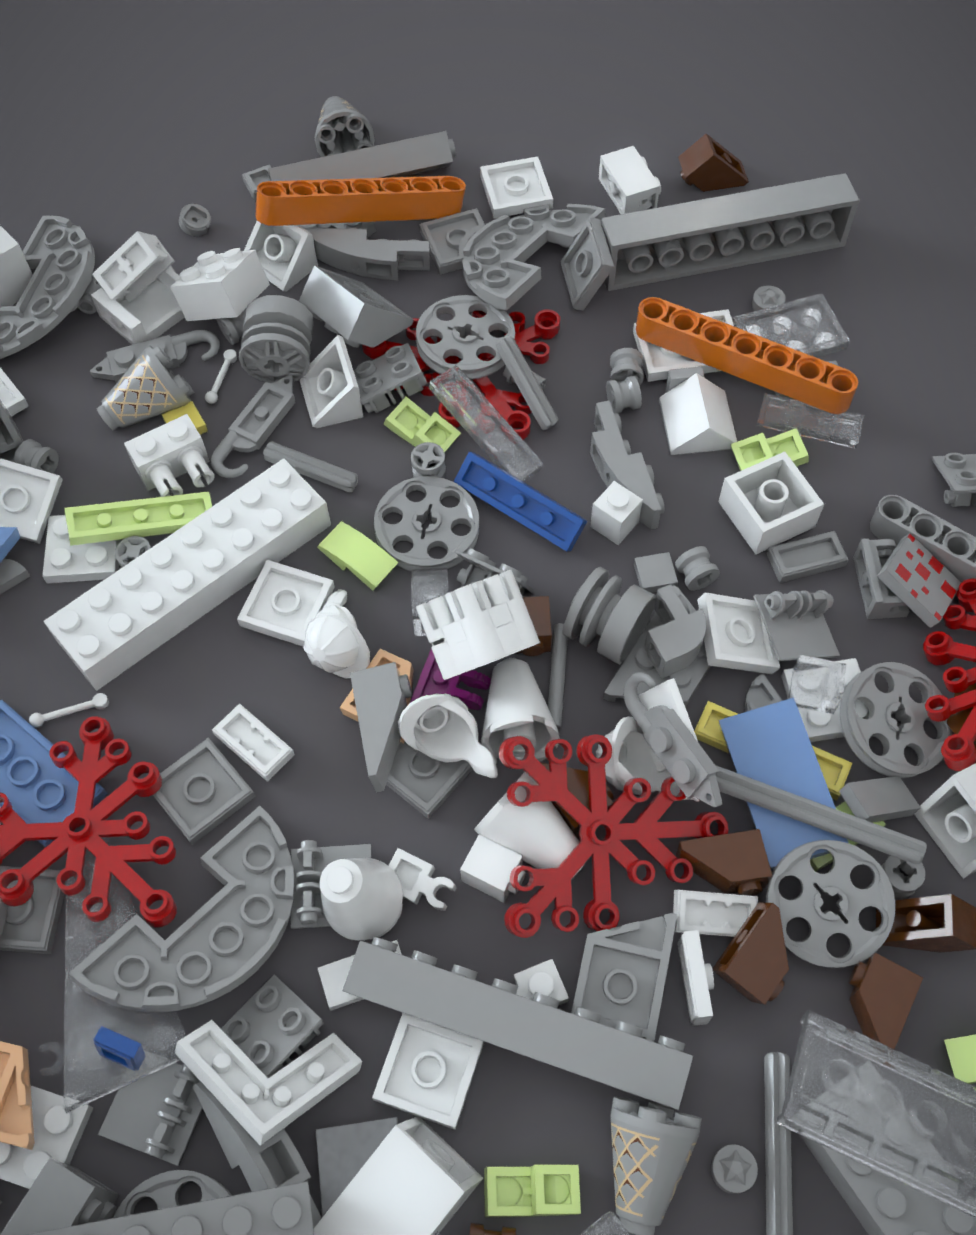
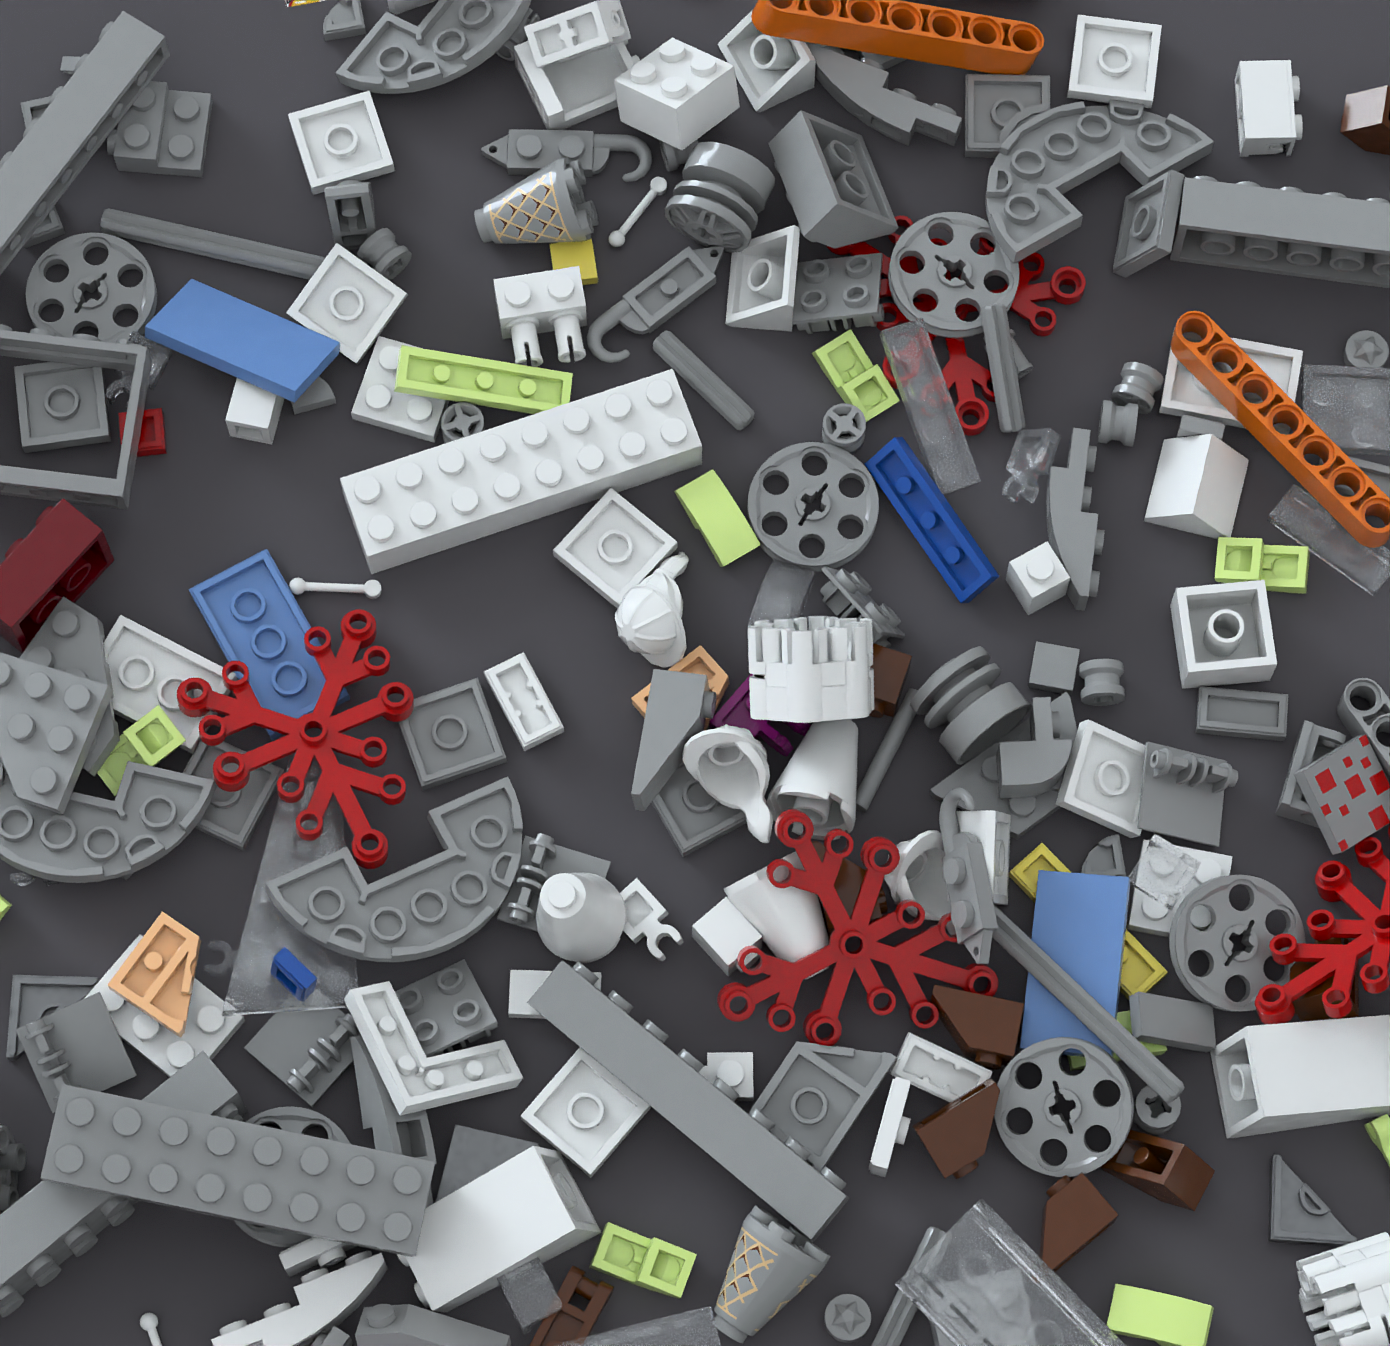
camera: 20 degrees right, 10 degrees up
(571, 437) = (1029, 458): none -> clear plate

